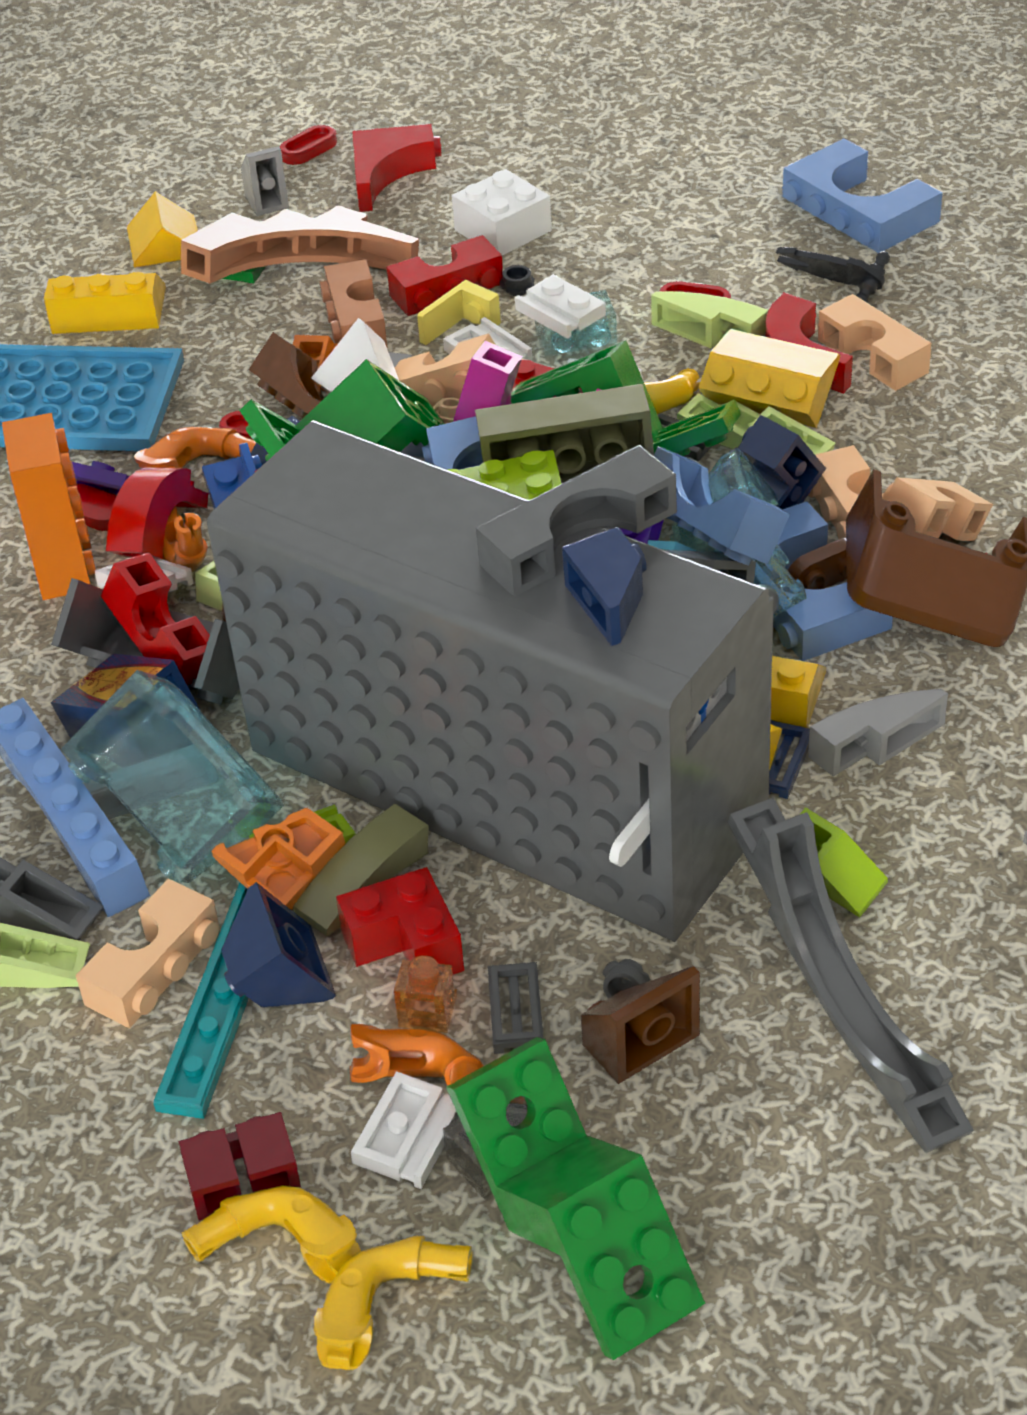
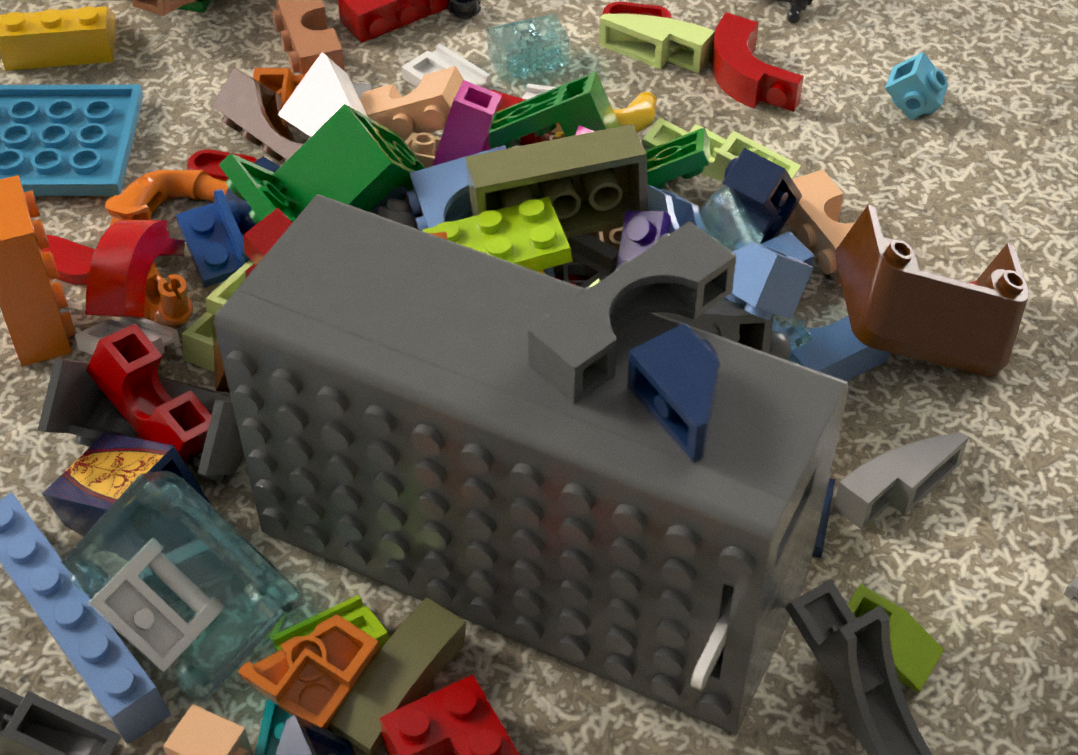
camera: 10 degrees left, 5 degrees up
(99, 476) = (72, 228): dark purple plate -> none
(133, 804) = (144, 617): none -> white plate
(461, 302) = (415, 28): light yellow bracket -> none
(560, 306) = (515, 32): white plate -> none
(770, 374) = (728, 98): yellow slope -> none
(821, 566) = (820, 297): reddish brown plate -> none
(896, 352) = (796, 43): light nougat arch -> none
(941, 507) = (925, 230): light nougat arch -> none
(972, 370) = (917, 86): none -> medium azure brick

